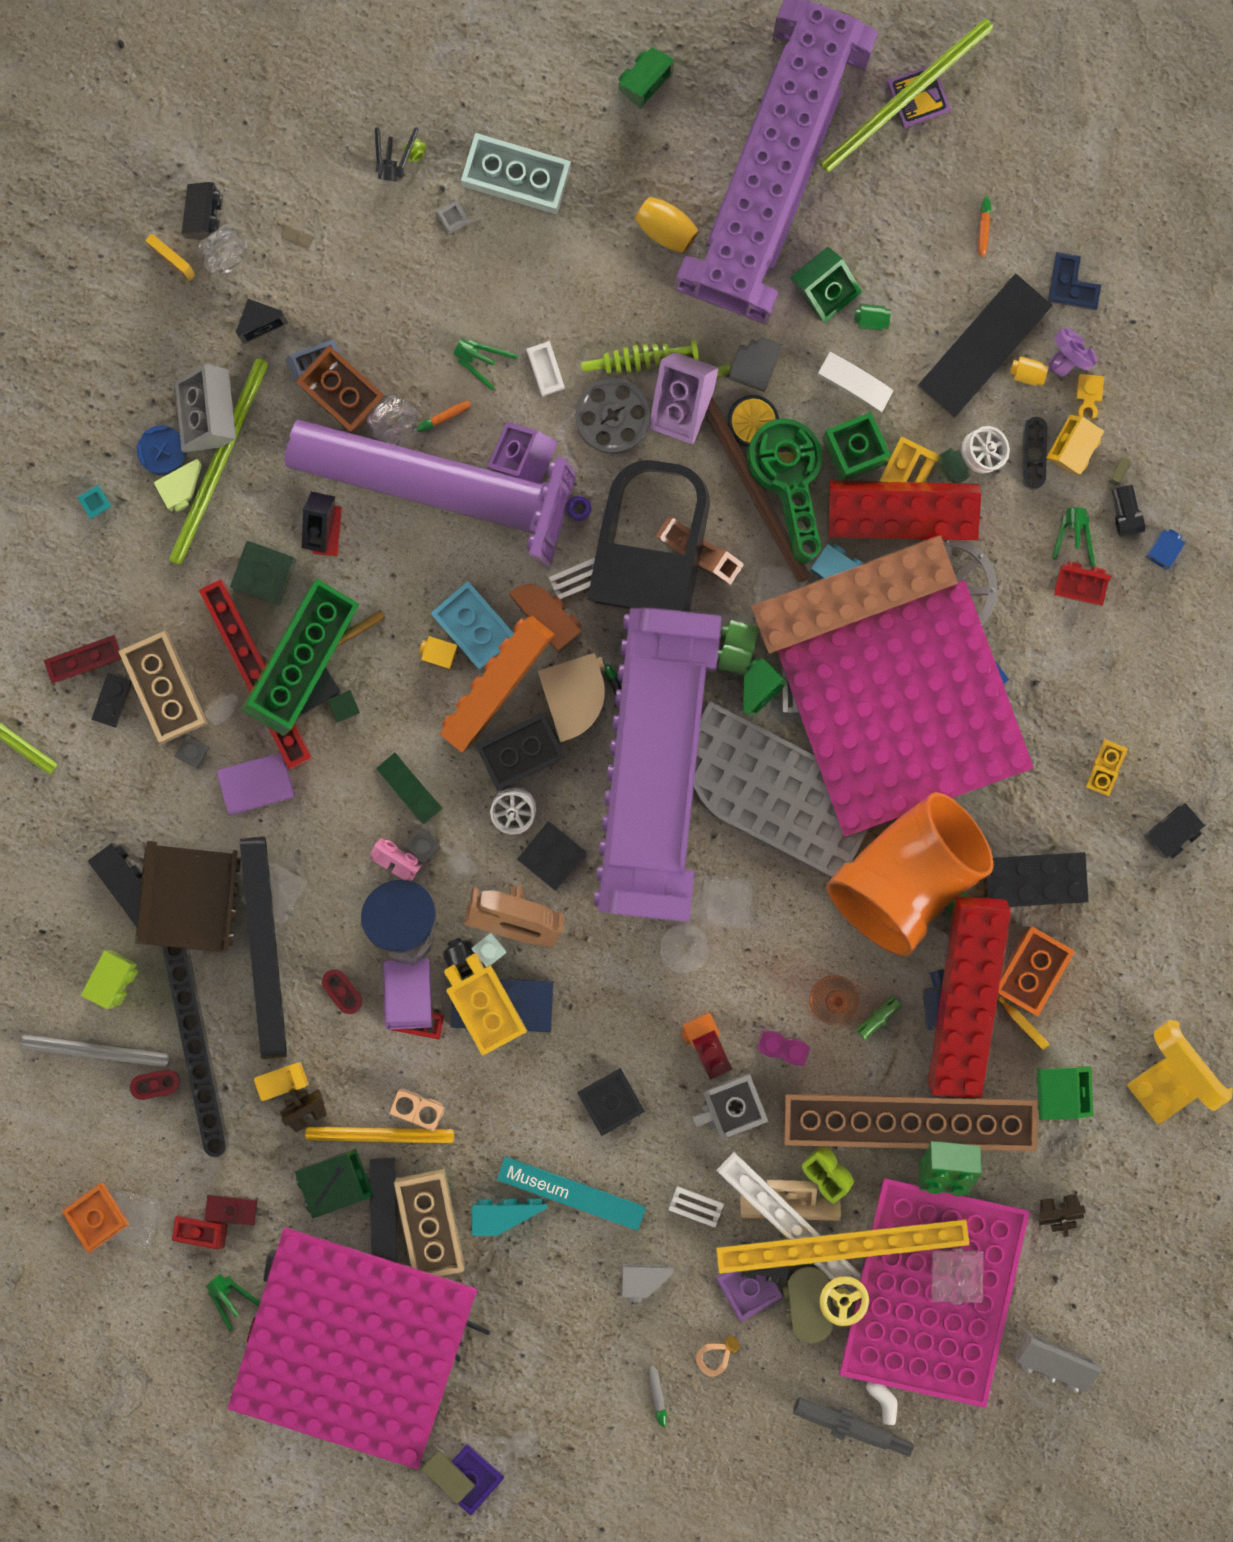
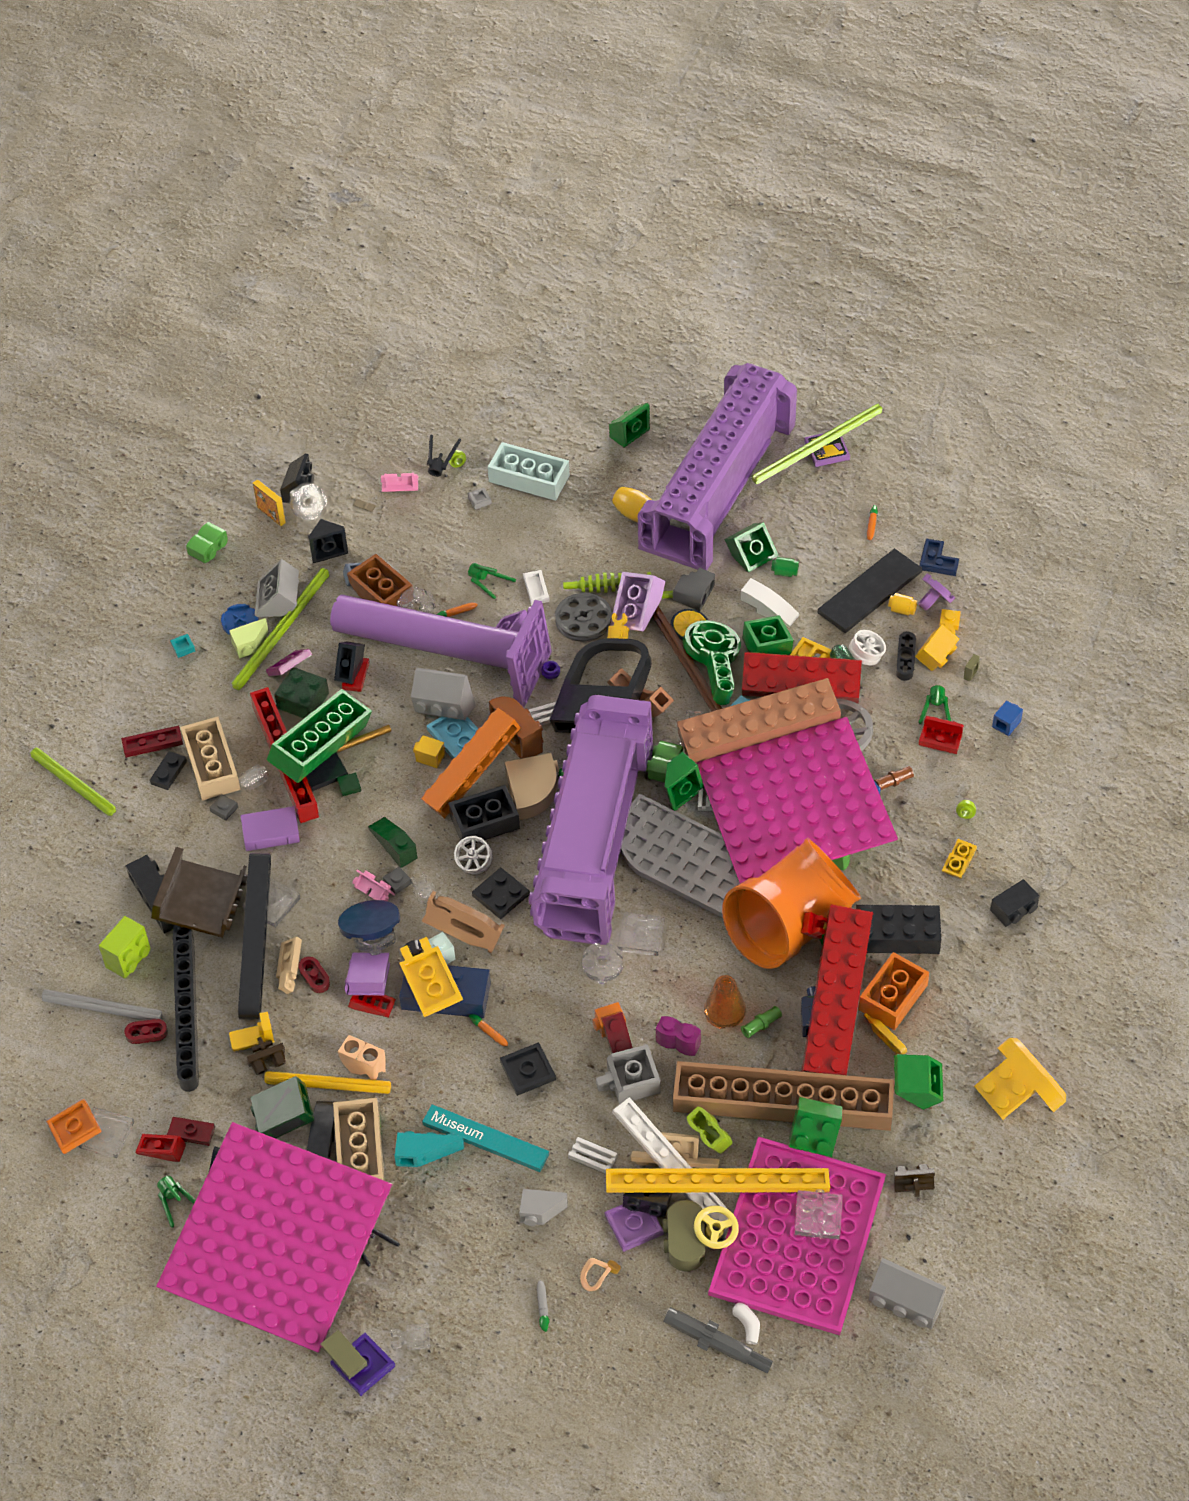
camera: 10 degrees right, 35 degrees down
(96, 325) = (207, 542): none -> bright green brick
(239, 527) = (288, 662): none -> magenta tile
(309, 980) = (288, 964): none -> tan hinge
(341, 198) = (406, 482): none -> bright pink hinge
(446, 576) = (442, 694): none -> light grey slope
(545, 1039) = (477, 1021): none -> orange piece
(661, 445) = (618, 630): none -> yellow plate
(939, 922) = (813, 925): none -> red tile
(1023, 652) = (895, 777): none -> dark orange pin
(1114, 695) = (966, 805): none -> lime plate
(1128, 518) = (978, 696): black piece -> none

